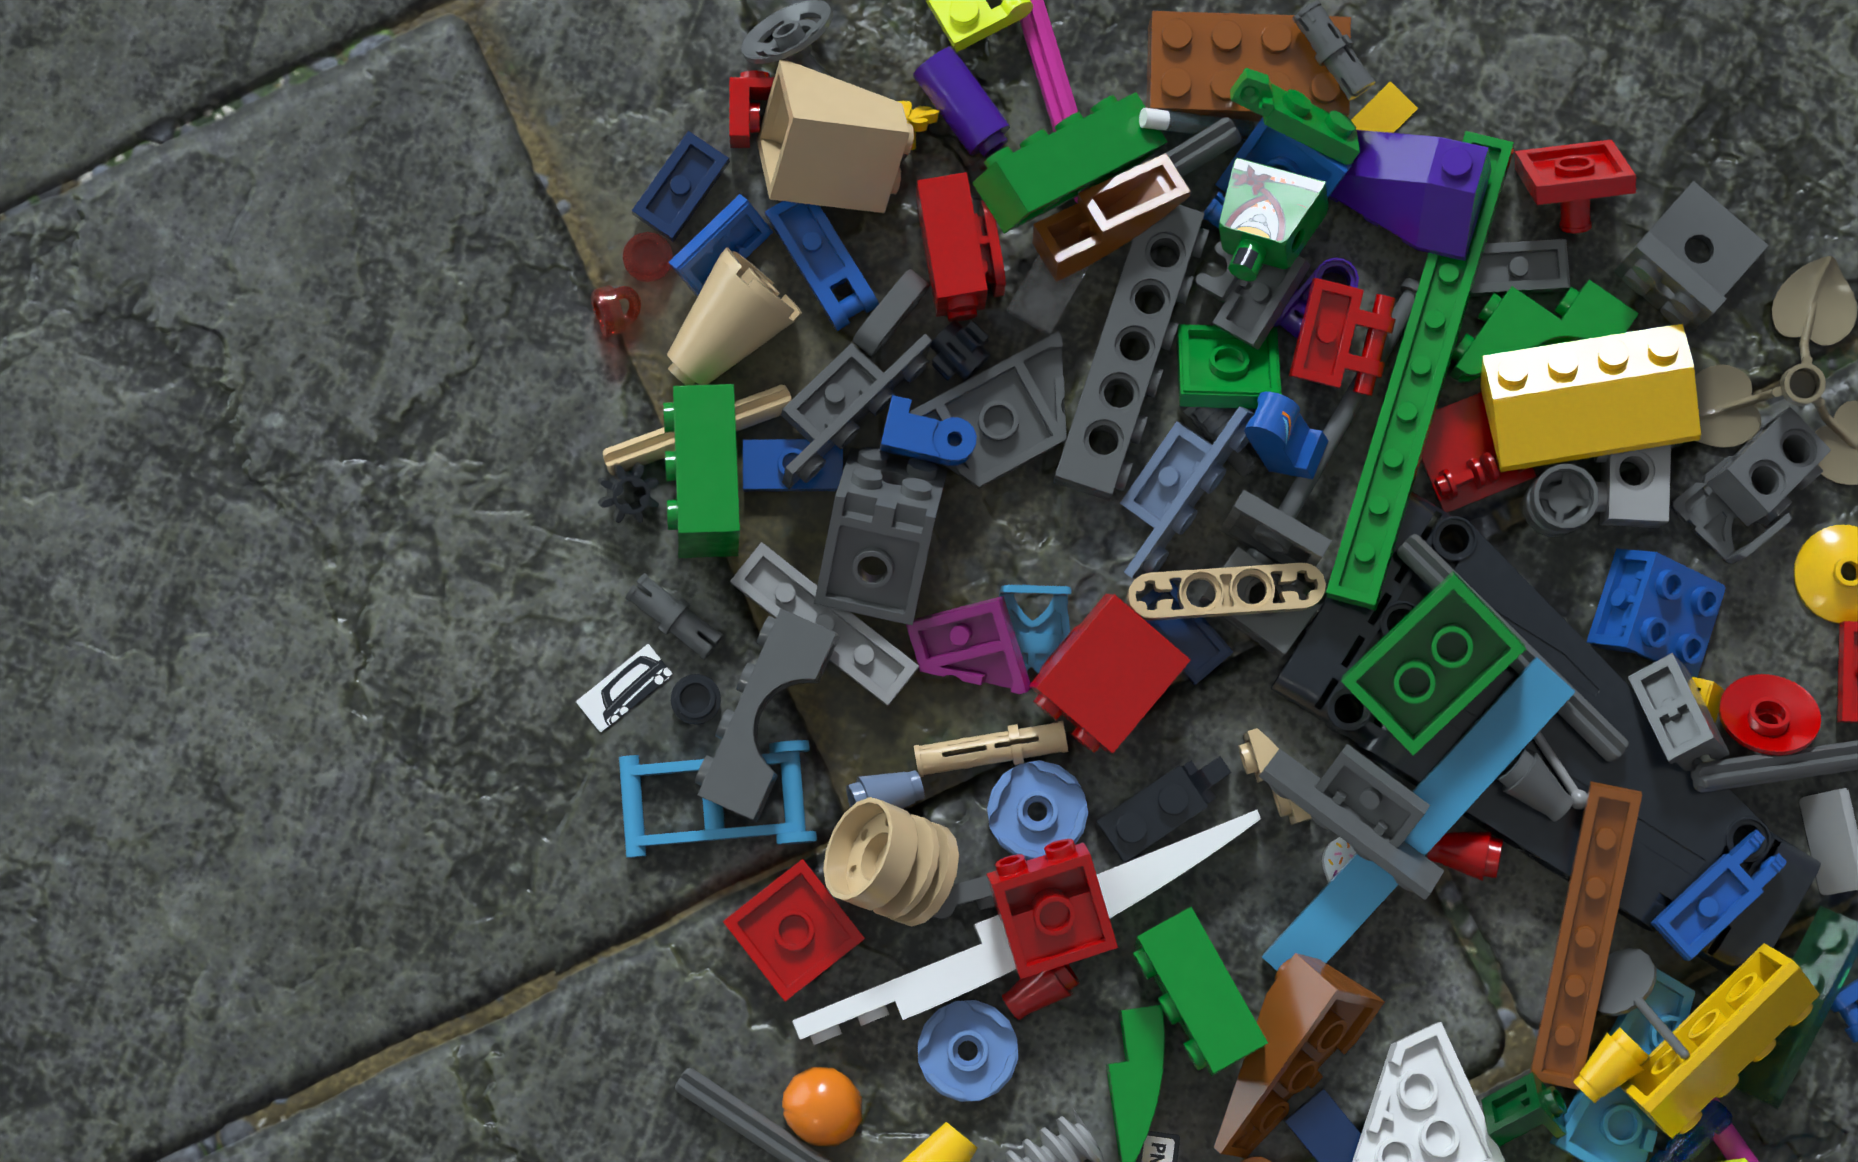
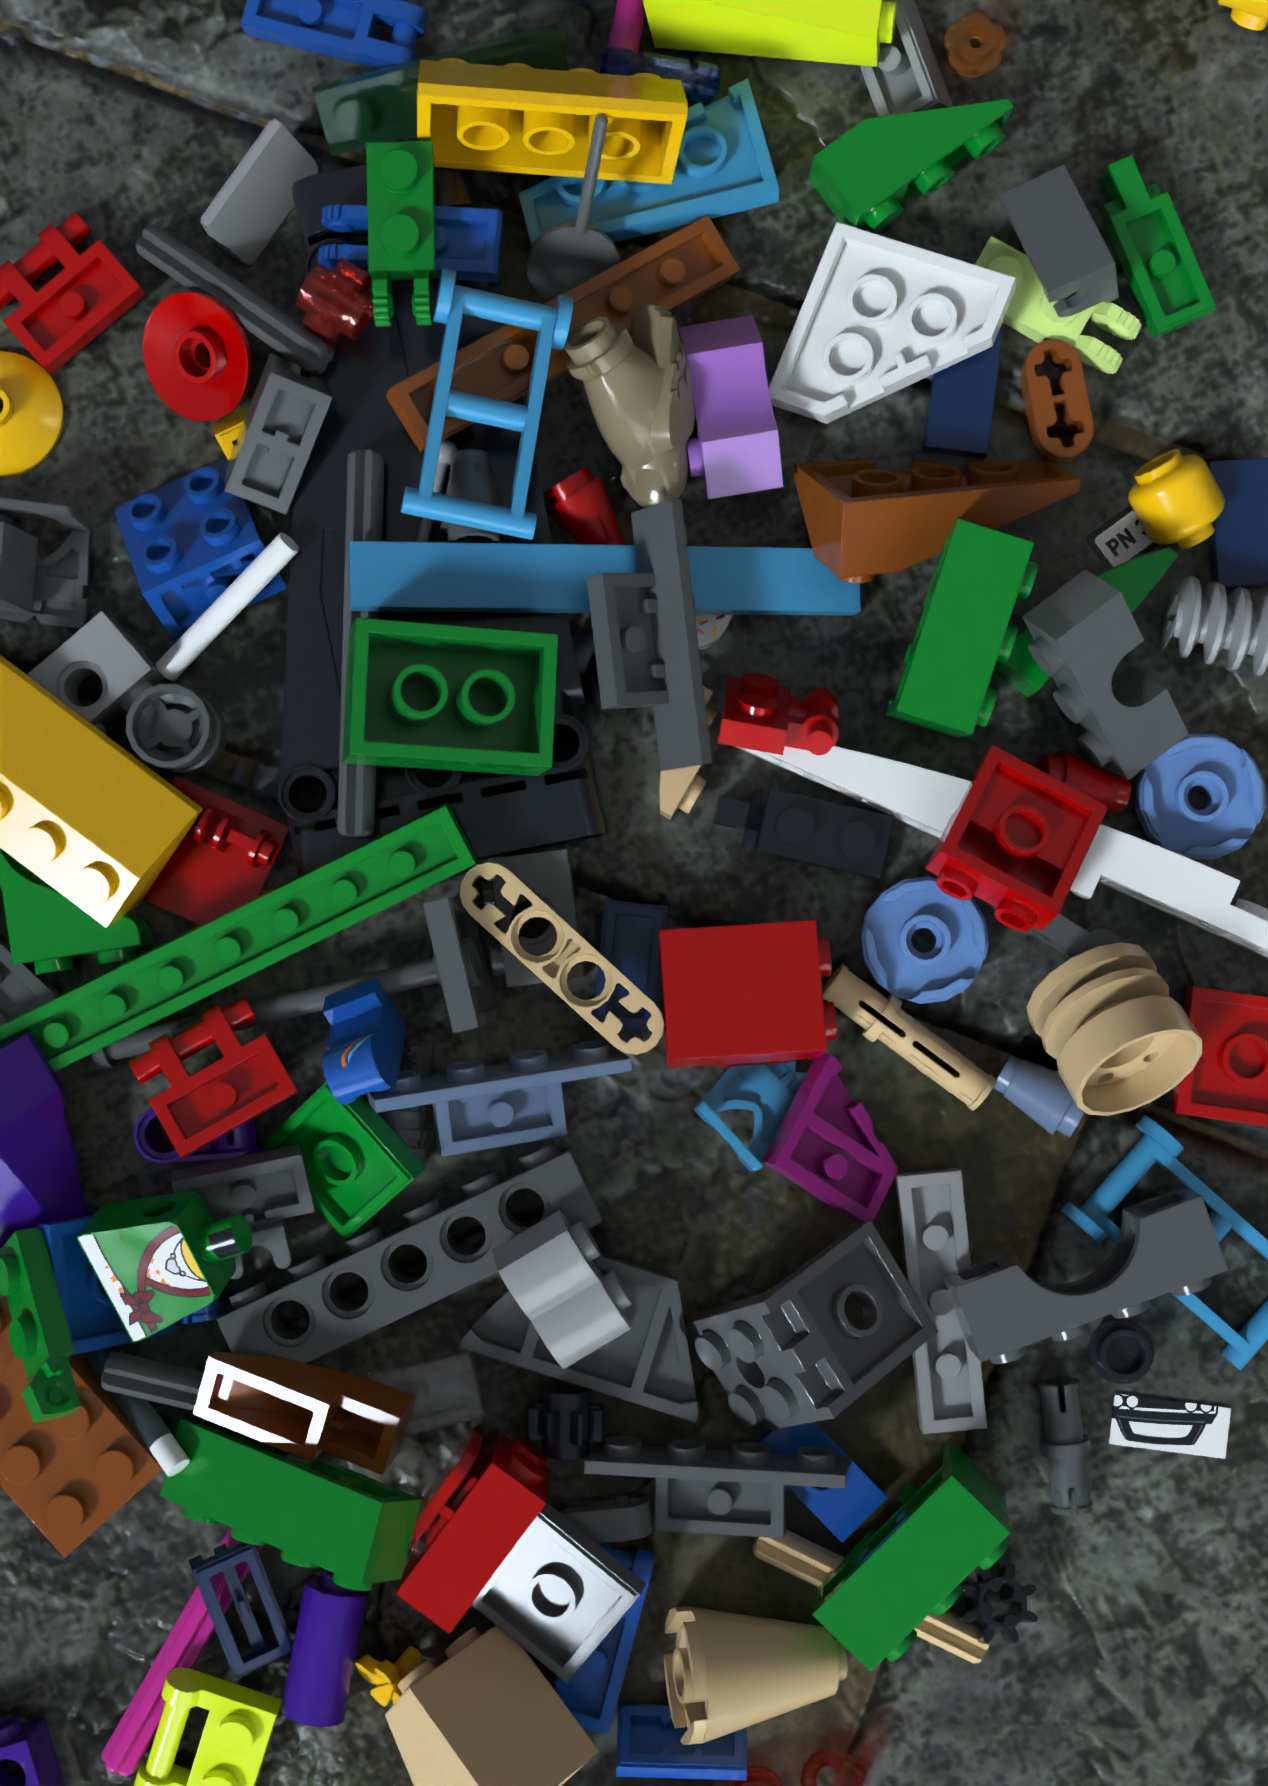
camera: 125 degrees left, 5 degrees up
(876, 256) = (558, 1593): none -> plate
(925, 438) = (670, 1356): blue leg -> none
(1040, 418) = (562, 1287): none -> light grey brick
(1066, 93) = (225, 1562): none -> dark blue tile
(1129, 1054) = (1079, 642): none -> dark grey arch
(1254, 842) = (766, 718): none -> red plate
(1454, 993) = (734, 416): none -> medium lavender brick
(1506, 940) = (639, 398): none -> dark tan animal
(1523, 1107) = (774, 247): dark green bracket -> none
(1591, 921) = (552, 329): none -> dark azure piece
(1605, 595) = (227, 606): none -> white bar
(1611, 1065) = (663, 199): yellow cone -> none
(1722, 817) = (336, 301): none -> clear red gear
(1731, 892) = (401, 225): none -> green hinge

